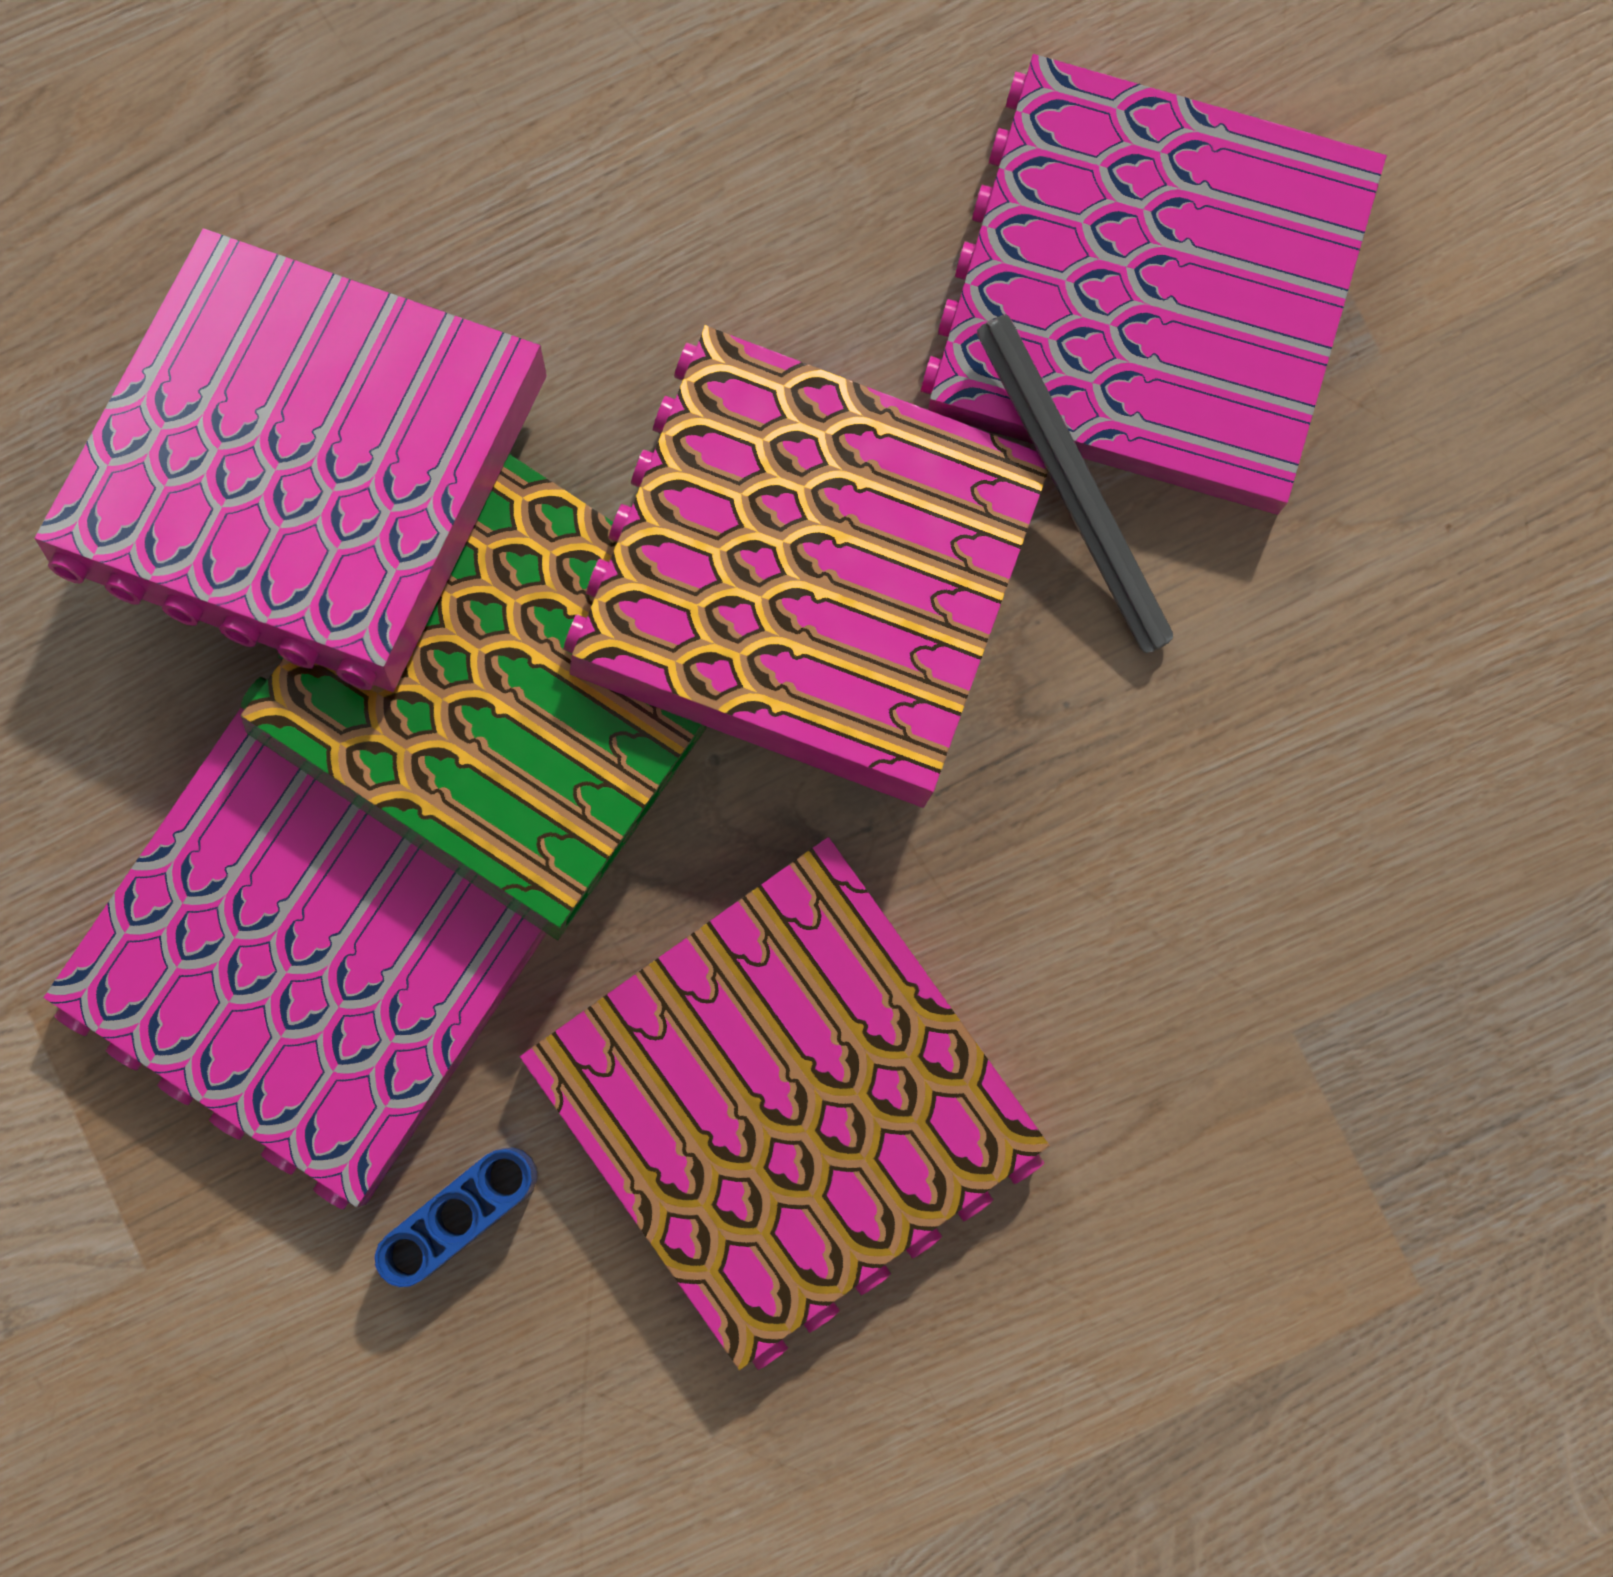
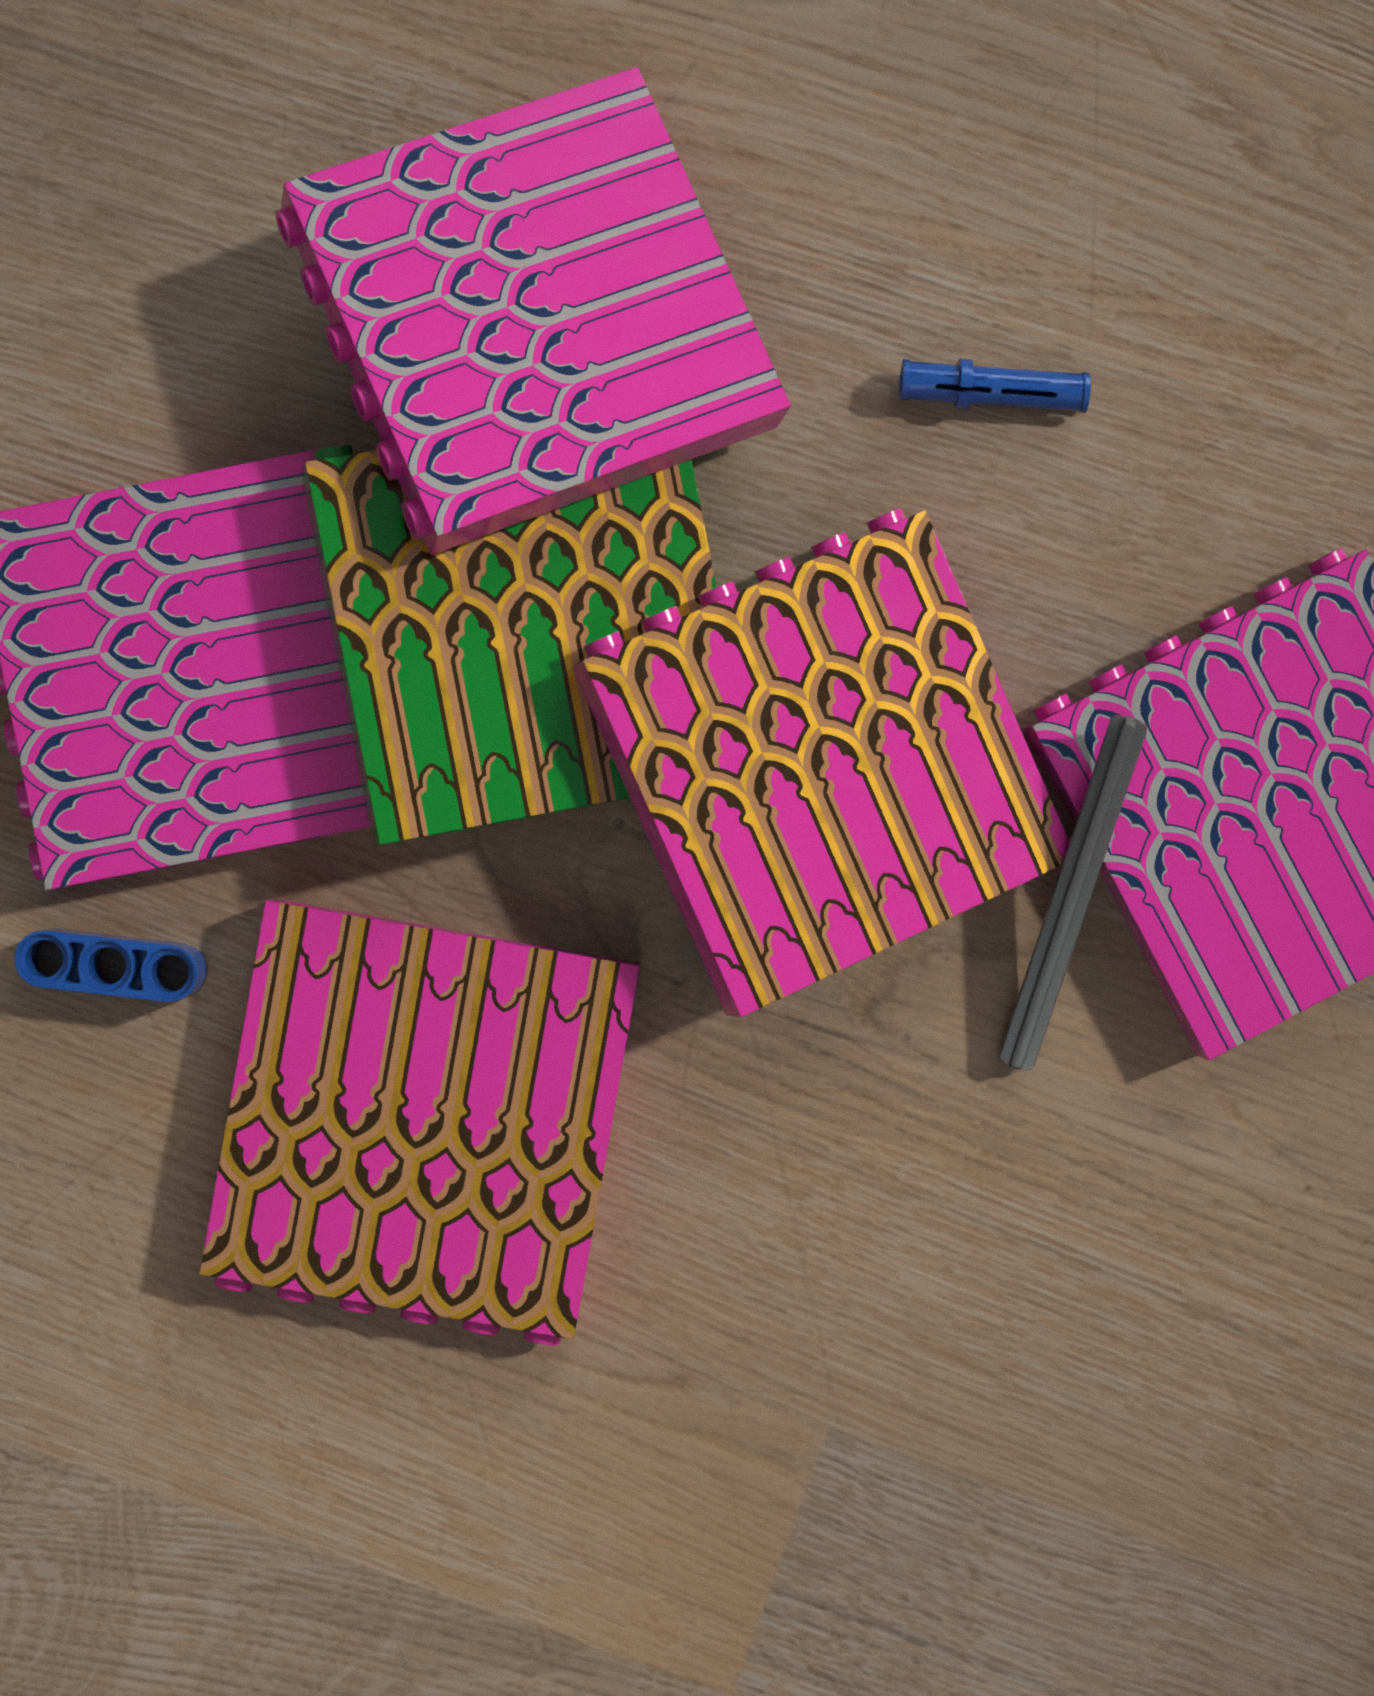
camera: 45 degrees right, 5 degrees up
(667, 202) = (994, 386): none -> blue pin

